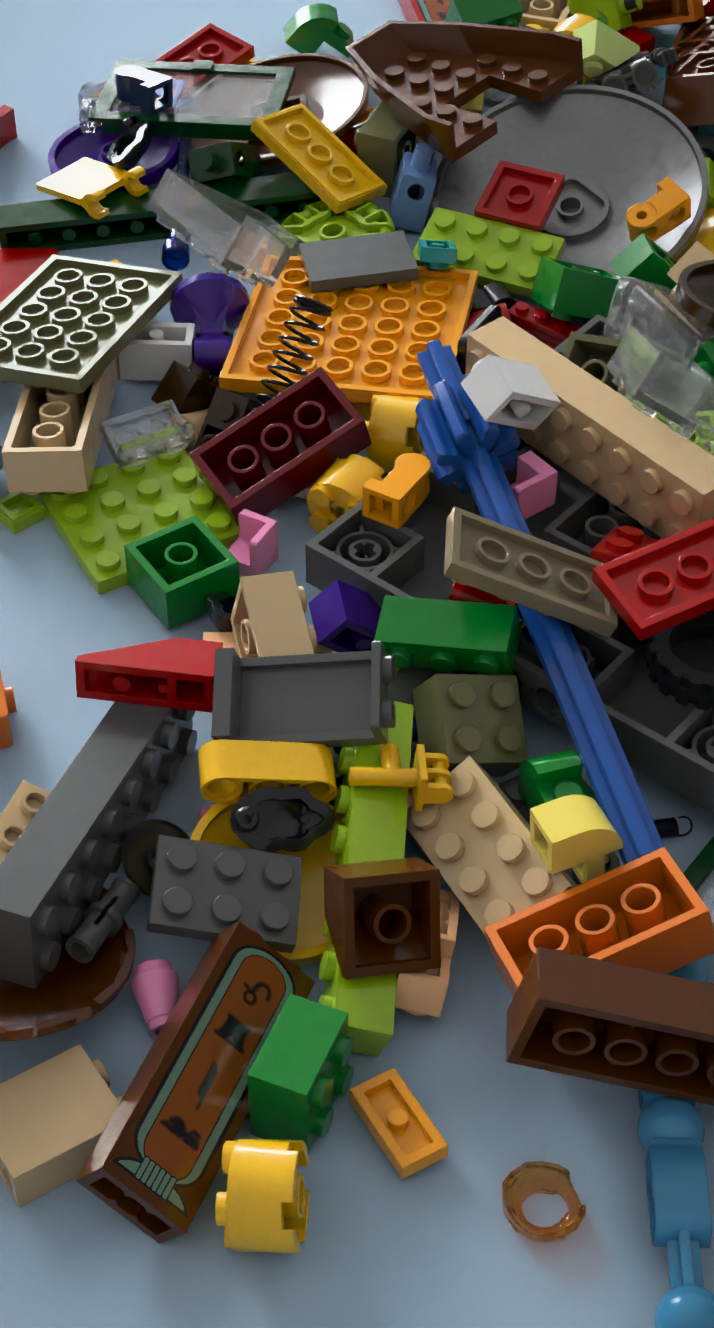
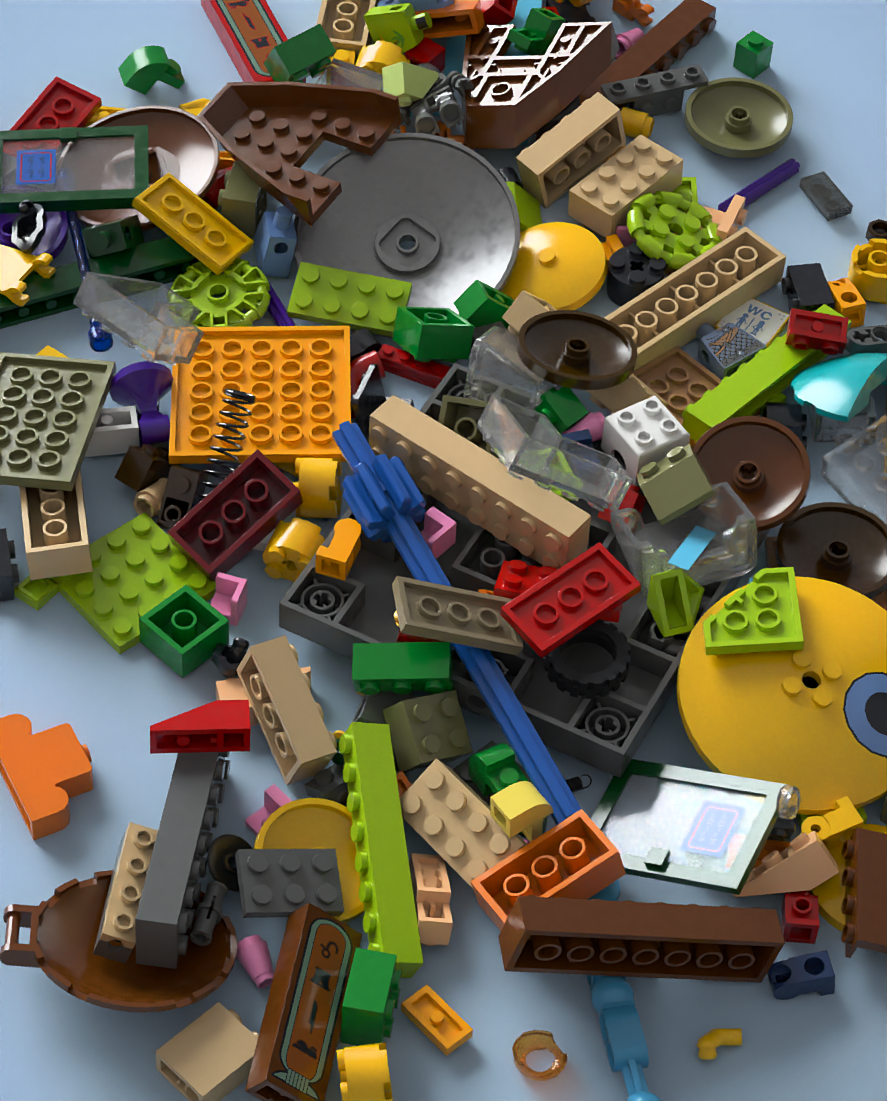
camera: 15 degrees left, 5 degrees up
(139, 86) = (27, 169): dark blue leg -> none
(146, 434) = (123, 513): clear bracket -> none
(242, 766) = (299, 791): yellow beam -> none
(281, 819) = (316, 824): black arm -> none
(305, 697) = (315, 734): dark grey panel -> none
(344, 618) = (324, 659): dark purple slope -> none
(358, 261) = (252, 329): dark grey tile -> none
(383, 916) = (403, 883): reddish brown slope -> none
(428, 777) = (409, 779): yellow arm -> none
(437, 253) = (314, 313): teal plate -> none
(510, 392) = (414, 468): white brick -> none
(520, 196) = (369, 247): red plate -> none
(659, 213) = (485, 255): light orange leg -> none

